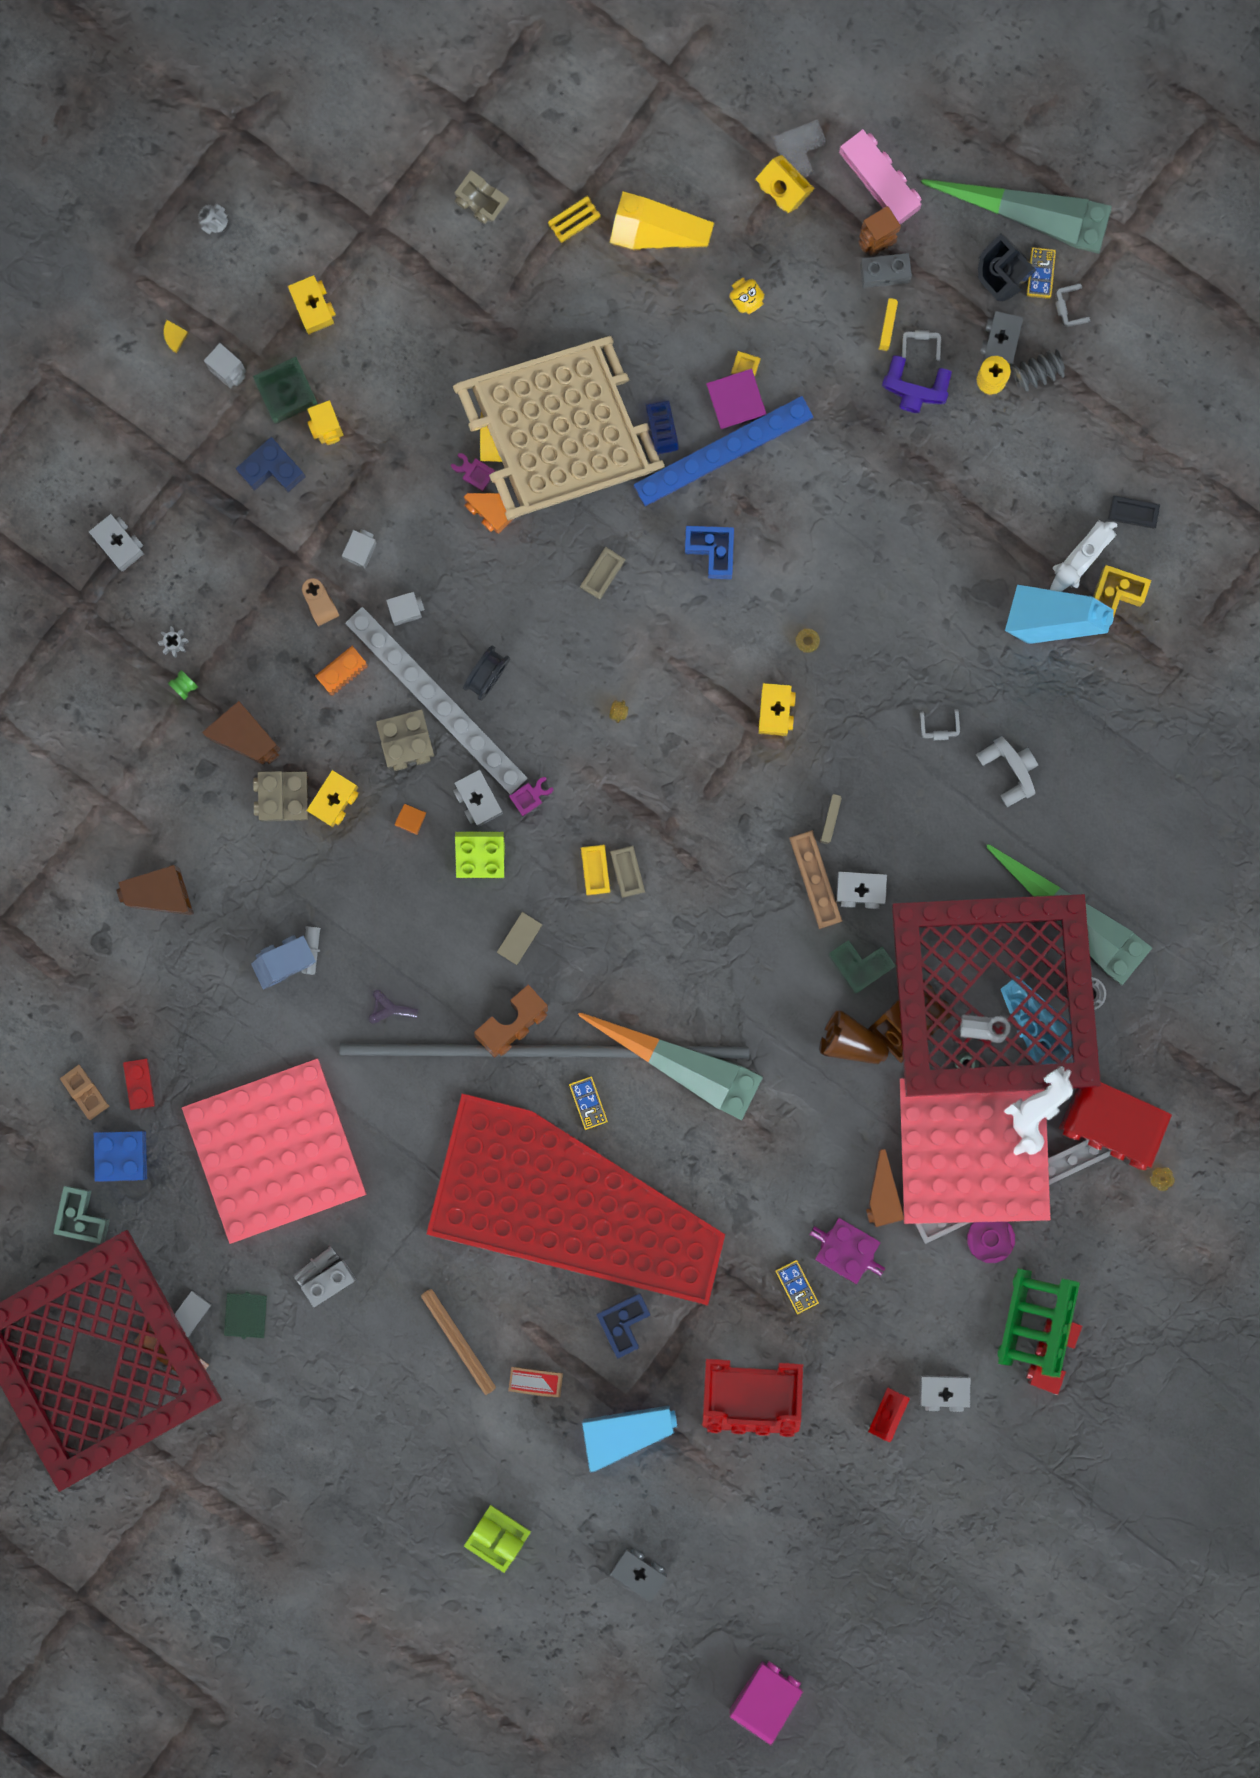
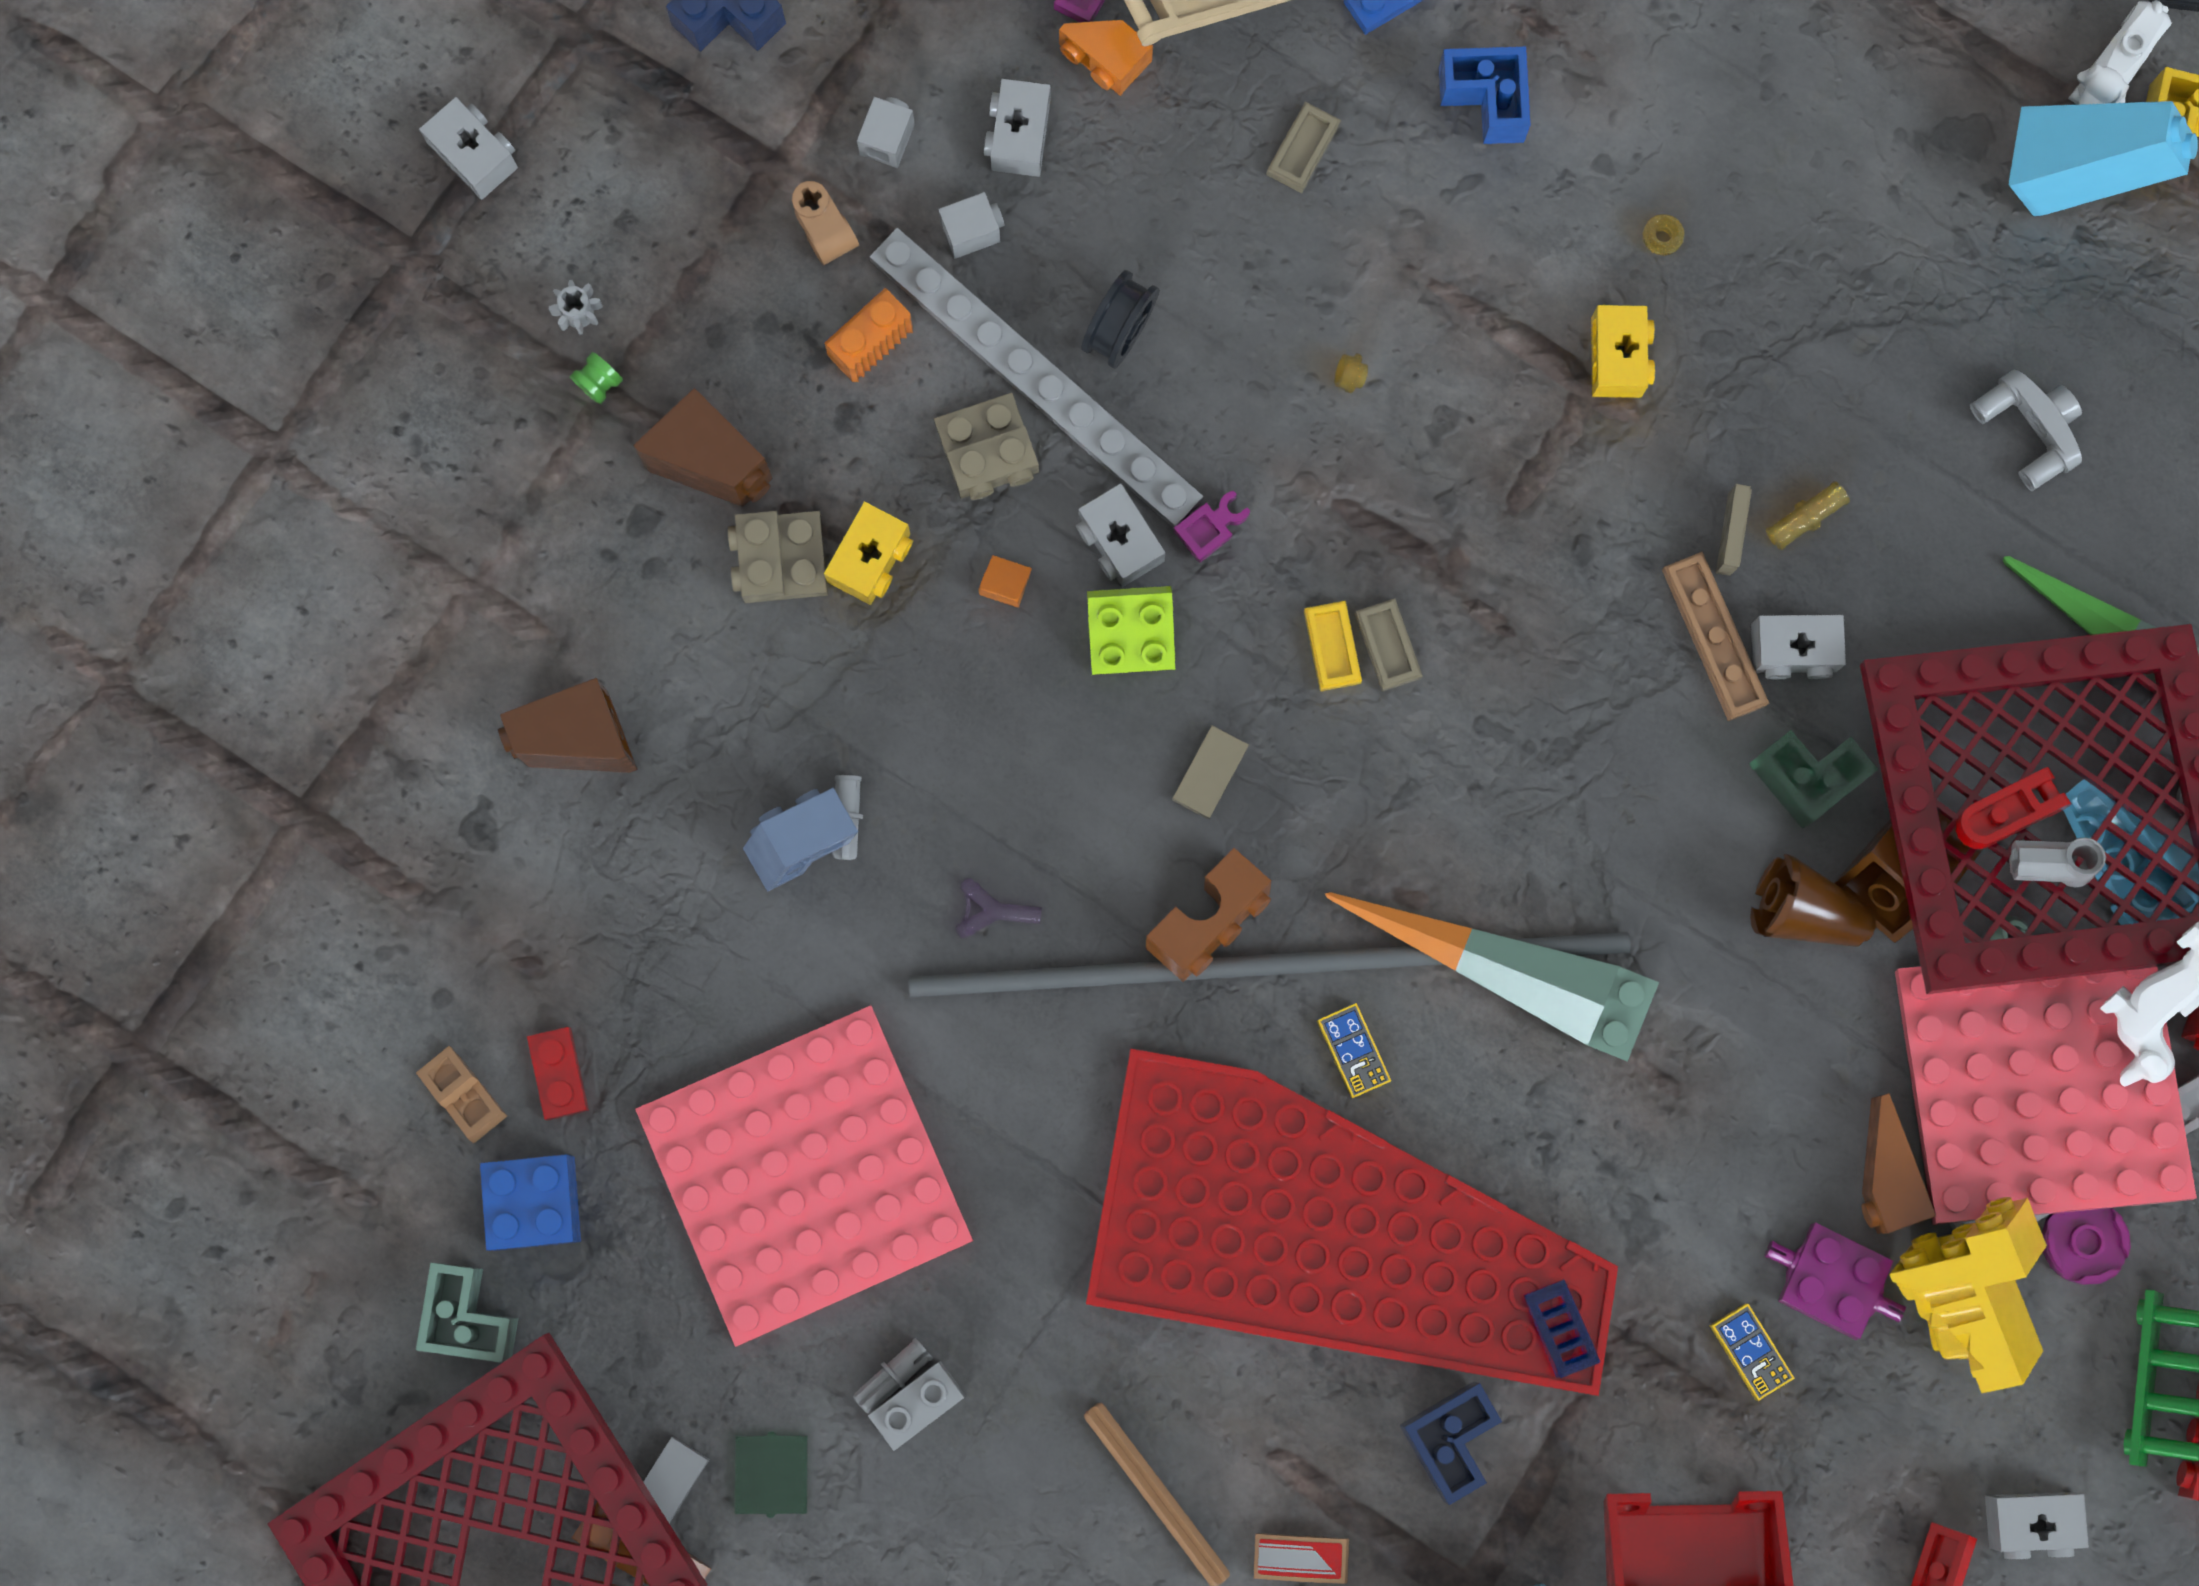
camera: 10 degrees left, 5 degrees down
(441, 564) = (1021, 150): none -> light grey brick
(695, 1286) = (1546, 1334): none -> clear blue slope
(874, 813) = (1807, 515): none -> clear yellow pin
(920, 1264) = (1971, 1292): none -> yellow brick
(940, 735) = (1903, 377): light grey piece -> none
(963, 996) = (2010, 810): none -> red plate

